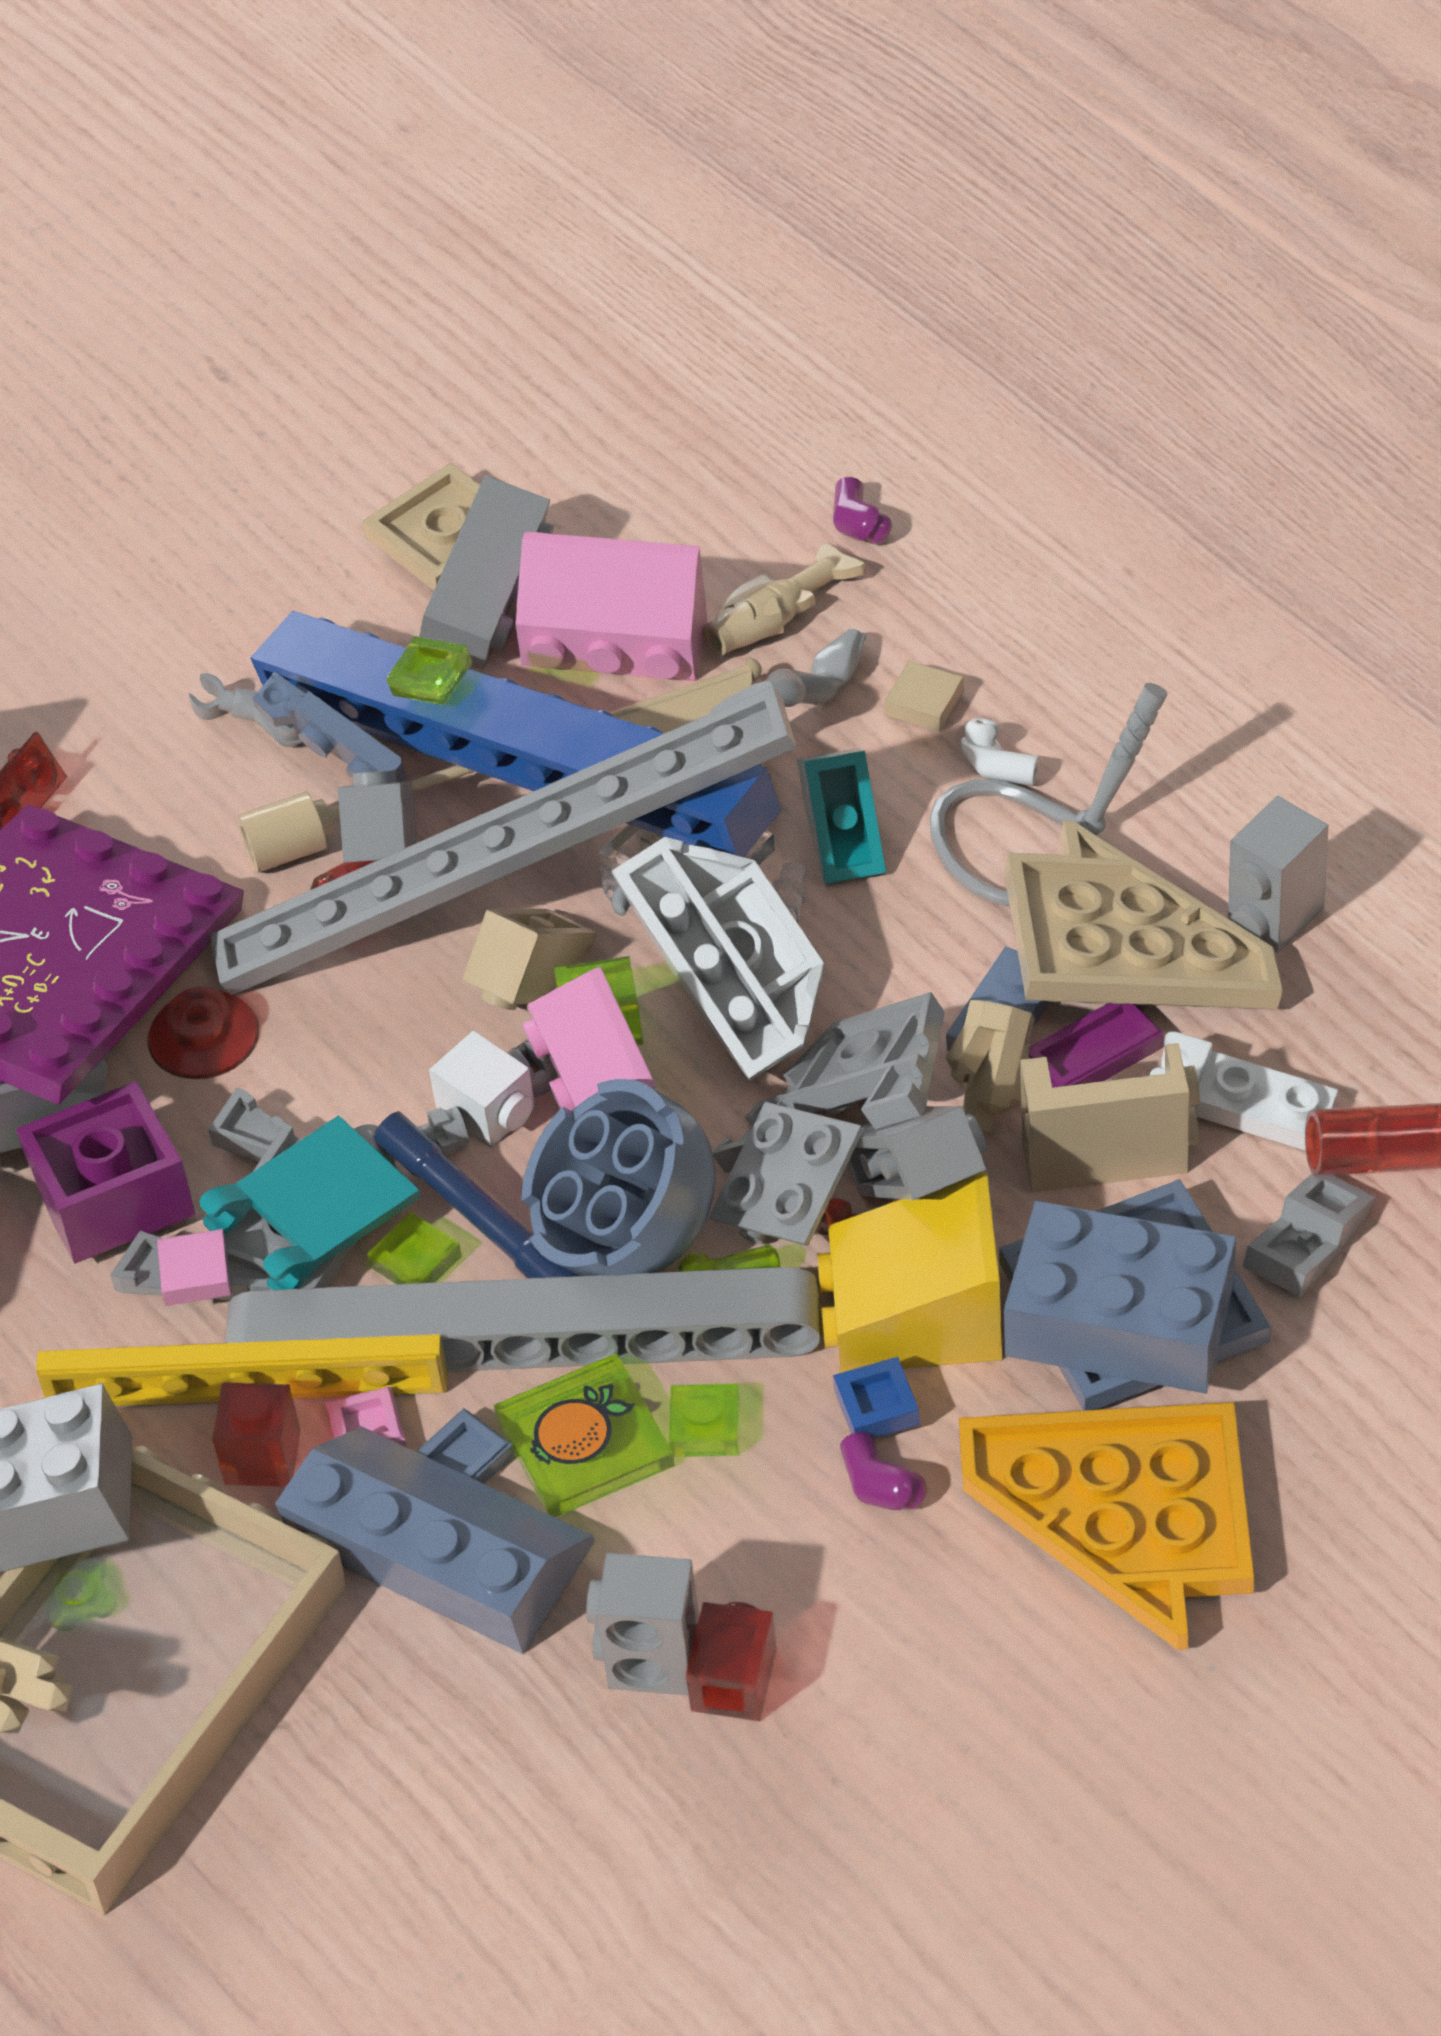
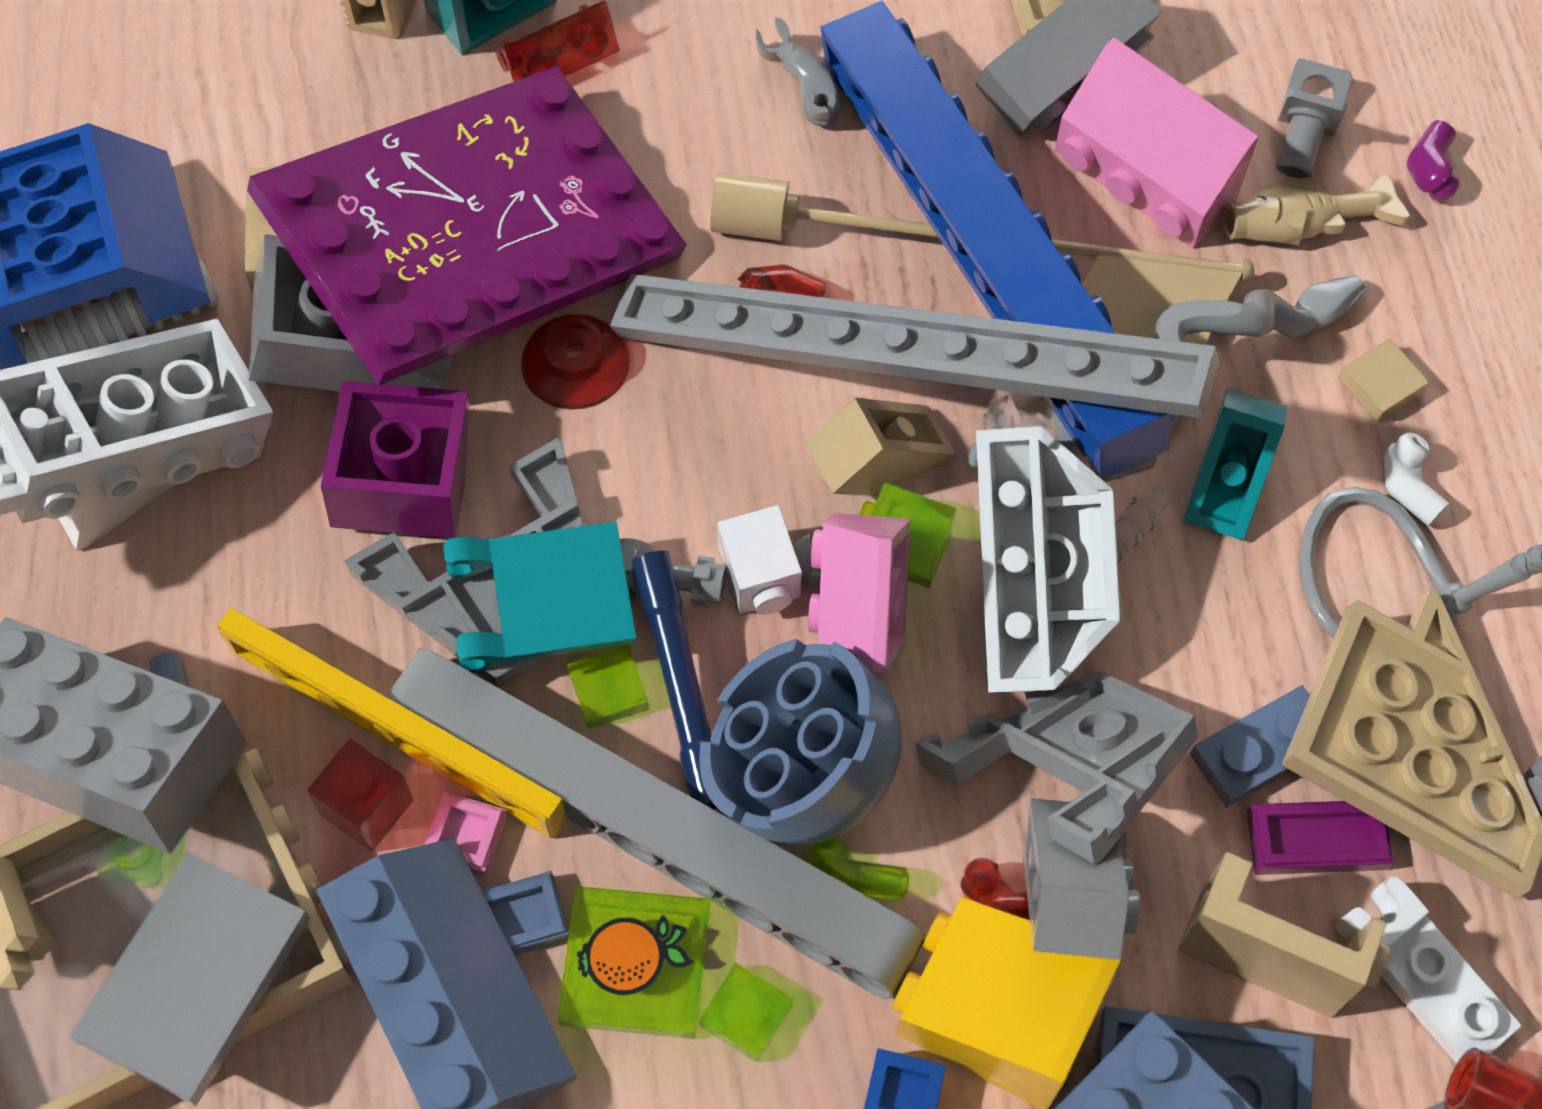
camera: 25 degrees right, 15 degrees up
(193, 1267) = (408, 599): bright pink tile -> none
(212, 1622) = (191, 978): none -> light grey tile
(324, 728) = (837, 133): sand blue hinge -> none
(376, 816) = (824, 247): light grey brick -> none
(429, 670) = (945, 132): clear neon green plate -> none
(728, 526) = (1310, 116): none -> light grey bracket
(785, 1174) = (956, 821): light grey hinge -> none
(988, 1059) = (1215, 807): tan rock -> none

